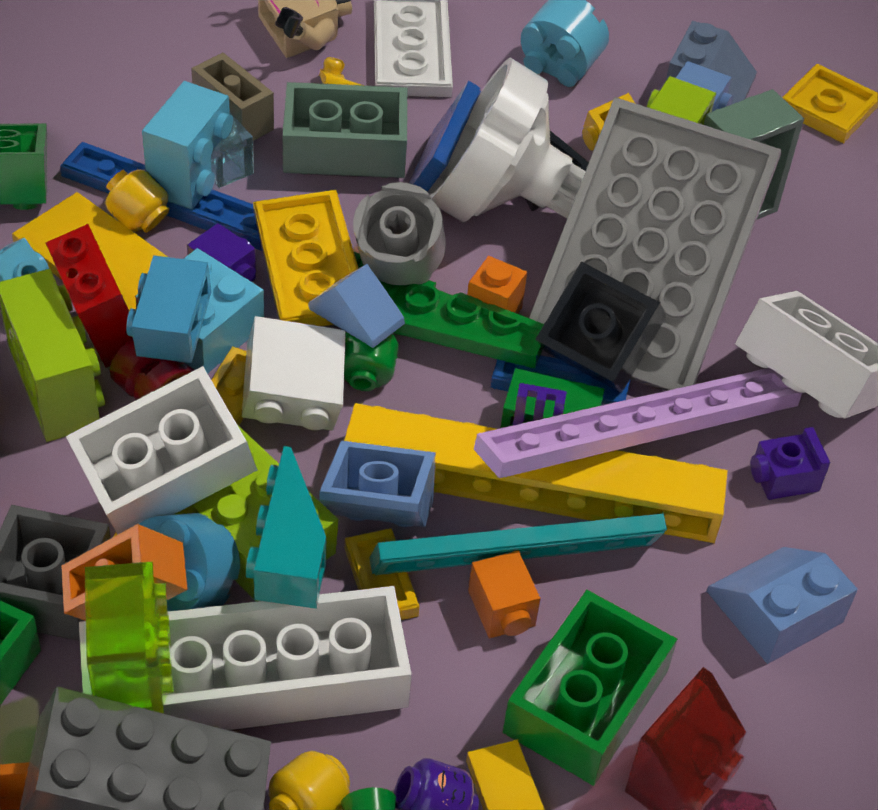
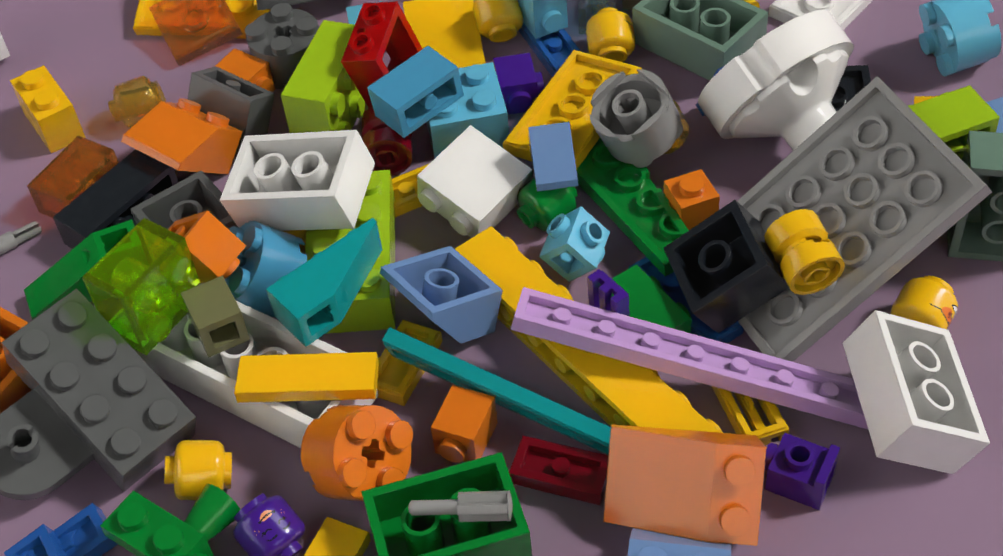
camera: 50 degrees right, 0 degrees up
(211, 629) = (215, 316): none -> olive brick
(267, 172) = (610, 34): none -> yellow head
(355, 633) = (307, 377): none -> yellow tile
(437, 380) = (574, 244): none -> medium azure brick
(460, 672) = (356, 450): none -> orange brick
(619, 648) = (469, 506): none -> light grey axle
(620, 577) = (560, 470): none -> dark red plate
(666, 279) = (804, 252): none -> yellow wheel
(697, 450) = (738, 422): none -> yellow tile
(744, 522) = (685, 483): none -> orange slope
(754, 280) = (926, 301): none -> yellow head

